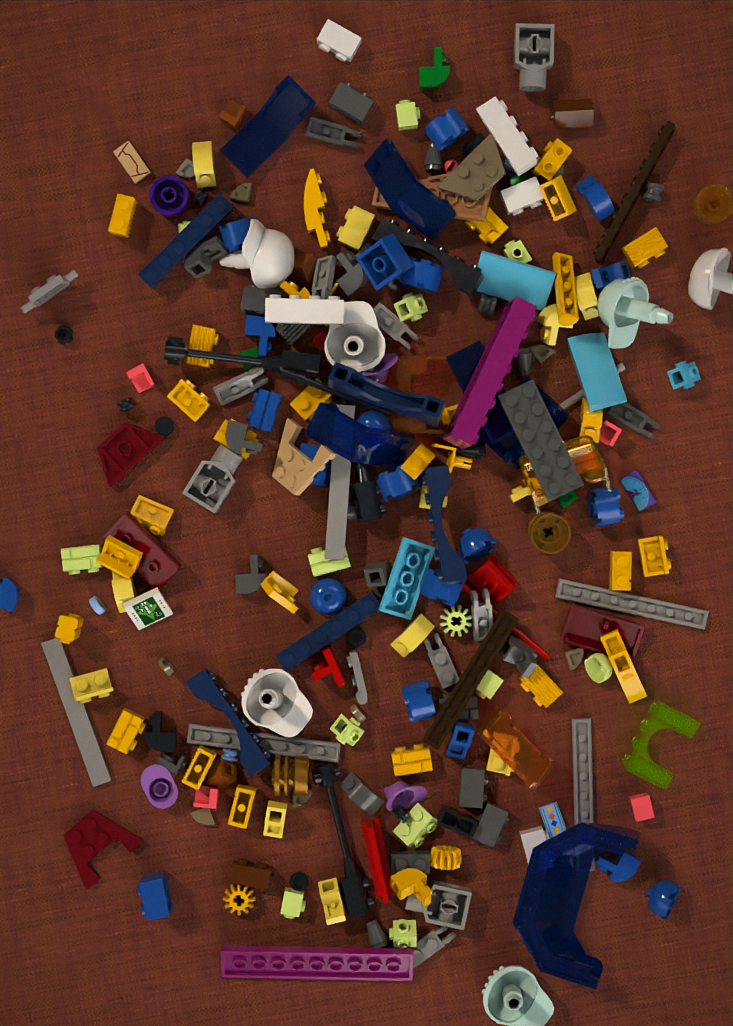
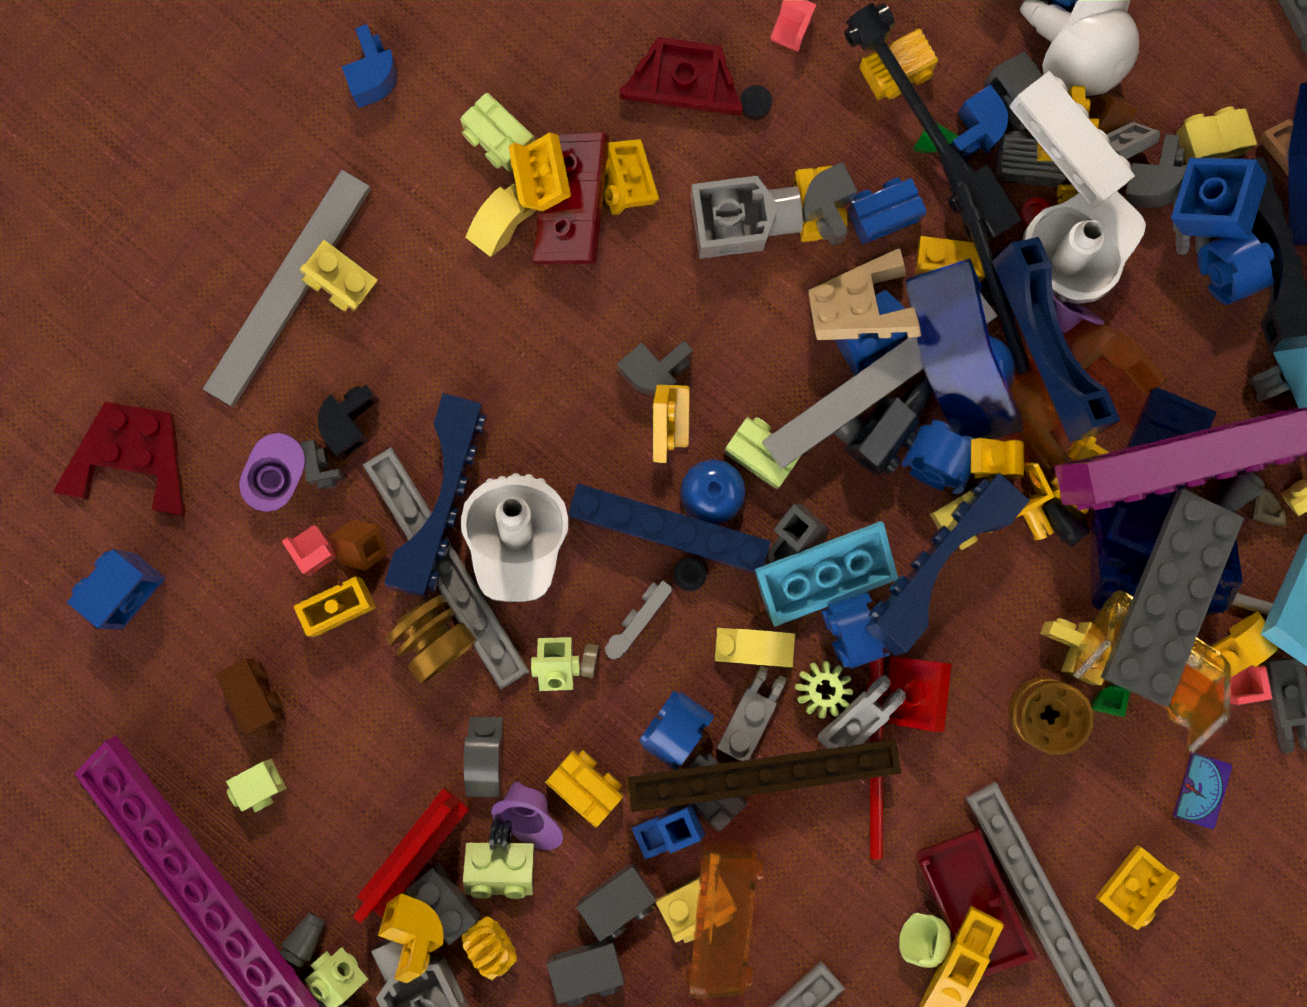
camera: 45 degrees right, 5 degrees down
(69, 627) = (390, 183): yellow brick -> none
(97, 605) = (452, 201): light blue tile -> none
(126, 404) = (743, 31): black bush -> none
(126, 730) = (313, 372): yellow brick -> none
(147, 608) = (501, 266): tile -> none
(166, 666) = (443, 356): dark tan tile -> none
(189, 400) = (817, 104): yellow bracket -> none
(199, 767) = (341, 506): yellow brick -> none
(203, 816) = (280, 568): dark tan tile -> none
(230, 754) = (393, 534): medium blue bush -> none
(240, 385) = (889, 152): light grey hinge -> none
(245, 896) = (192, 705): yellow gear -> none
(275, 819) = (353, 666): light yellow brick -> none
(298, 881) = (293, 770): black plate -> none
(300, 800) = (405, 679): dark tan tile -> none
(314, 201) = (1195, 65): yellow slope -> none
(332, 666) = (610, 561): red bracket -> none
(332, 901) = (301, 839): light yellow brick -> none
(352, 889) = (342, 852): black bar -> none
(392, 326) = (1136, 290): light grey hinge -> none
(411, 307) = (1181, 287): yellowish green brick -> none
(462, 822) = (557, 930): black brick -> none
(475, 544) = (951, 630): blue cylinder -> none
(489, 685) = (775, 807): yellowish green brick -> none
(520, 654) = (852, 817): dark grey brick -> none
(542, 687) = (832, 880): yellow brick -> none
(574, 657) = (907, 894): dark tan tile -> none
(604, 506) = (1149, 762): blue brick -> none
(620, 570) = (1080, 857): yellow brick -> none

